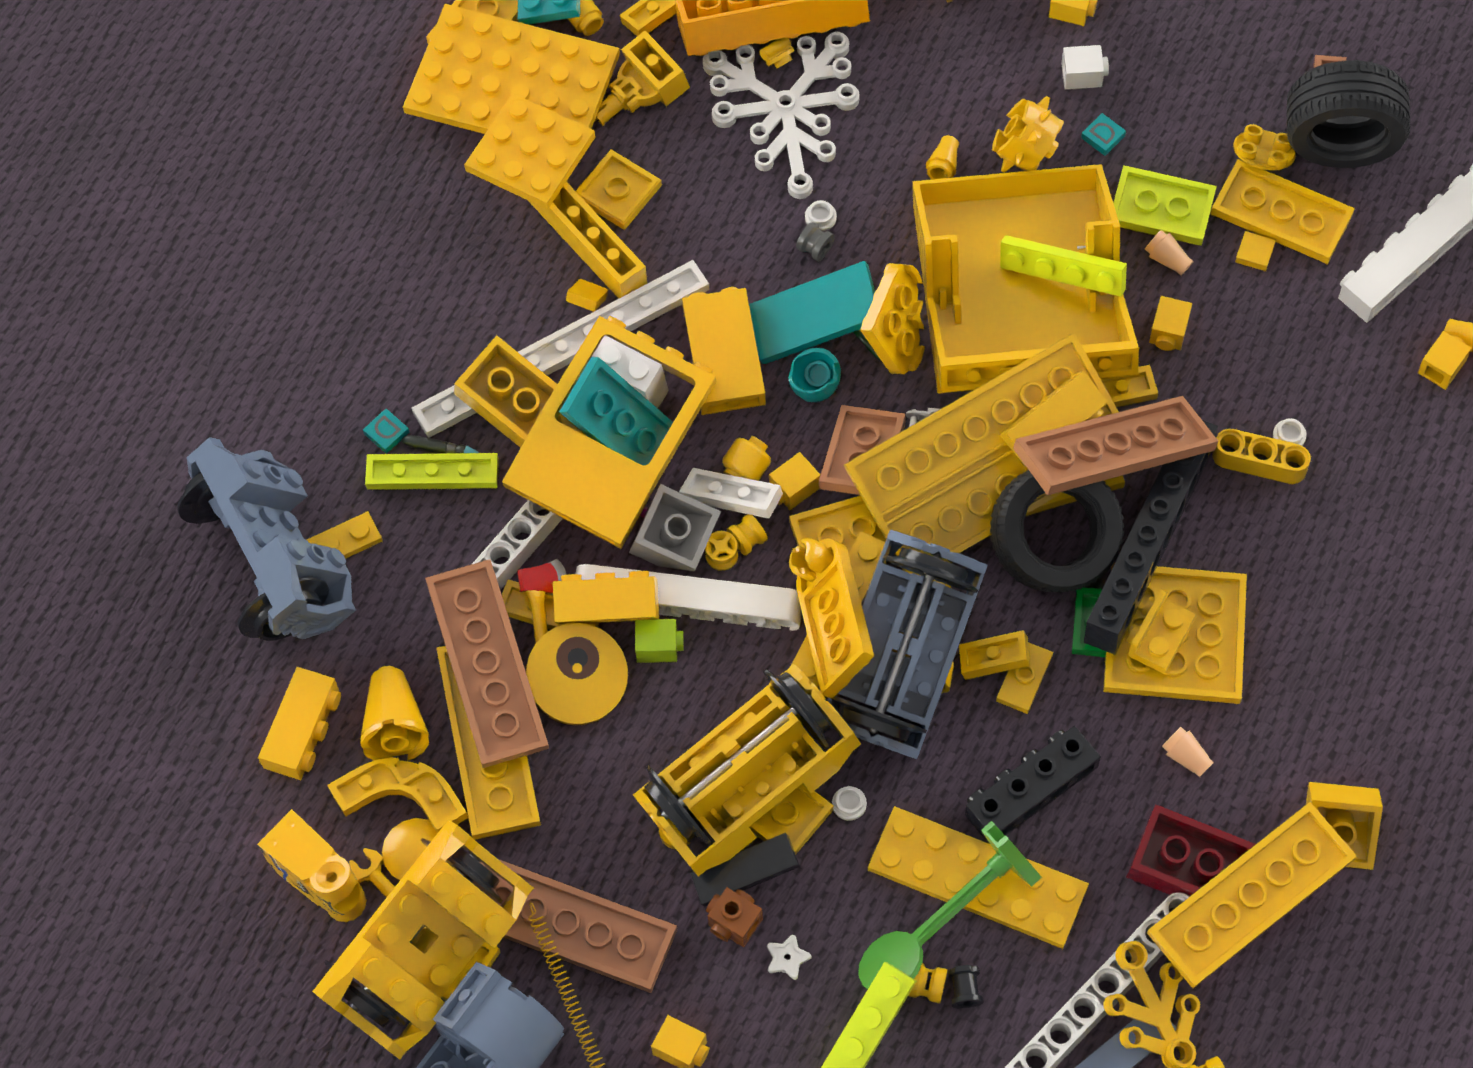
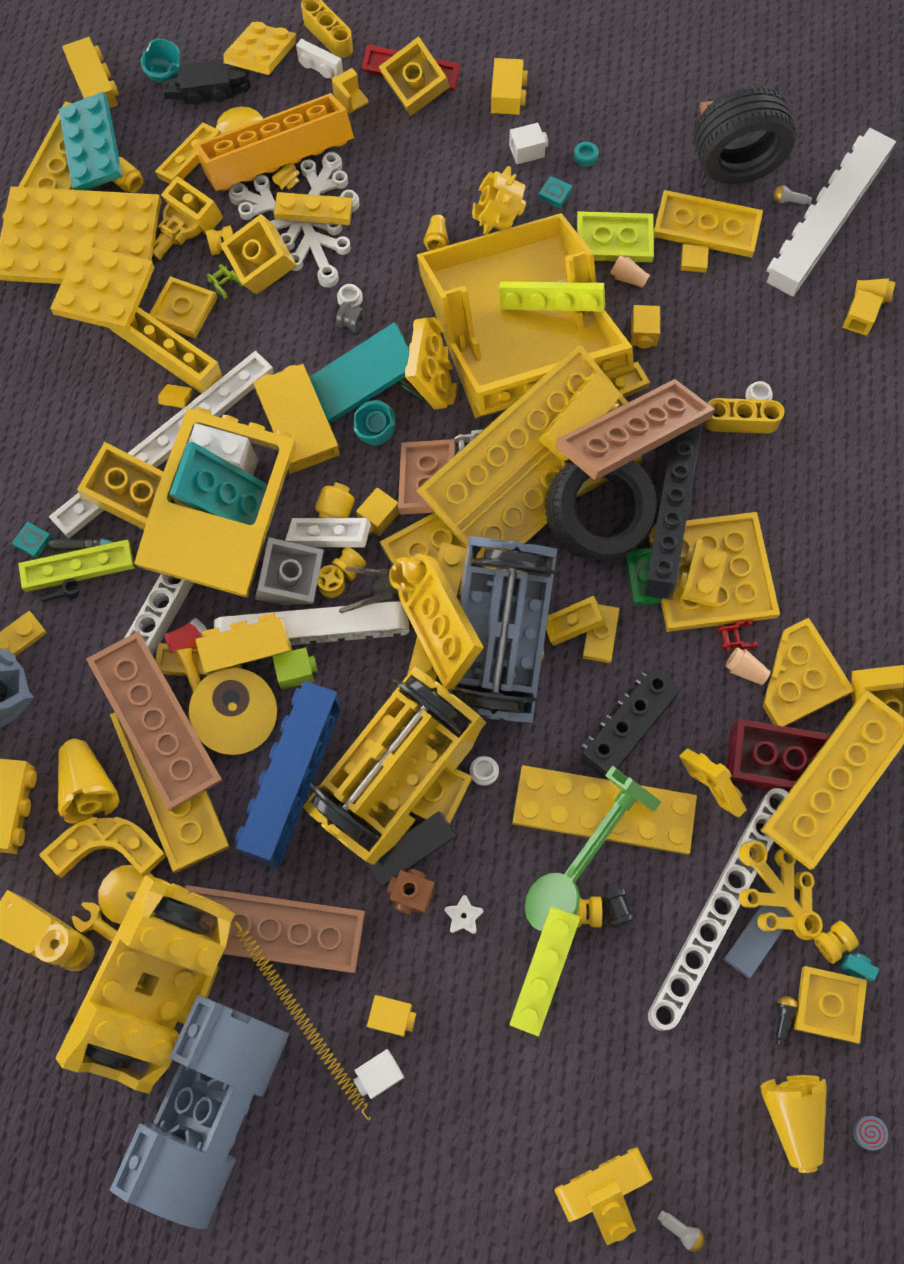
camera: 15 degrees left, 5 degrees up
(410, 498) = (62, 592): none -> black hand
(619, 763) = (287, 780): none -> blue brick
(673, 116) = (214, 239): none -> yellow wheel
(684, 162) = (229, 275): none -> lime piece
(722, 144) = (258, 254): none -> yellow brick
(777, 572) = (380, 589): none -> clear smoke plant
(800, 99) = (313, 208): none -> yellow plate
(1113, 866) = (717, 779): none -> yellow plate
(1154, 93) = (586, 154): none -> teal tile
(1184, 704) = (734, 628): none -> red piece
(1251, 776) = (803, 676): none -> yellow plate
(1264, 148) = (682, 179): yellow dish -> none
(1387, 193) = (783, 194): none -> light grey piece

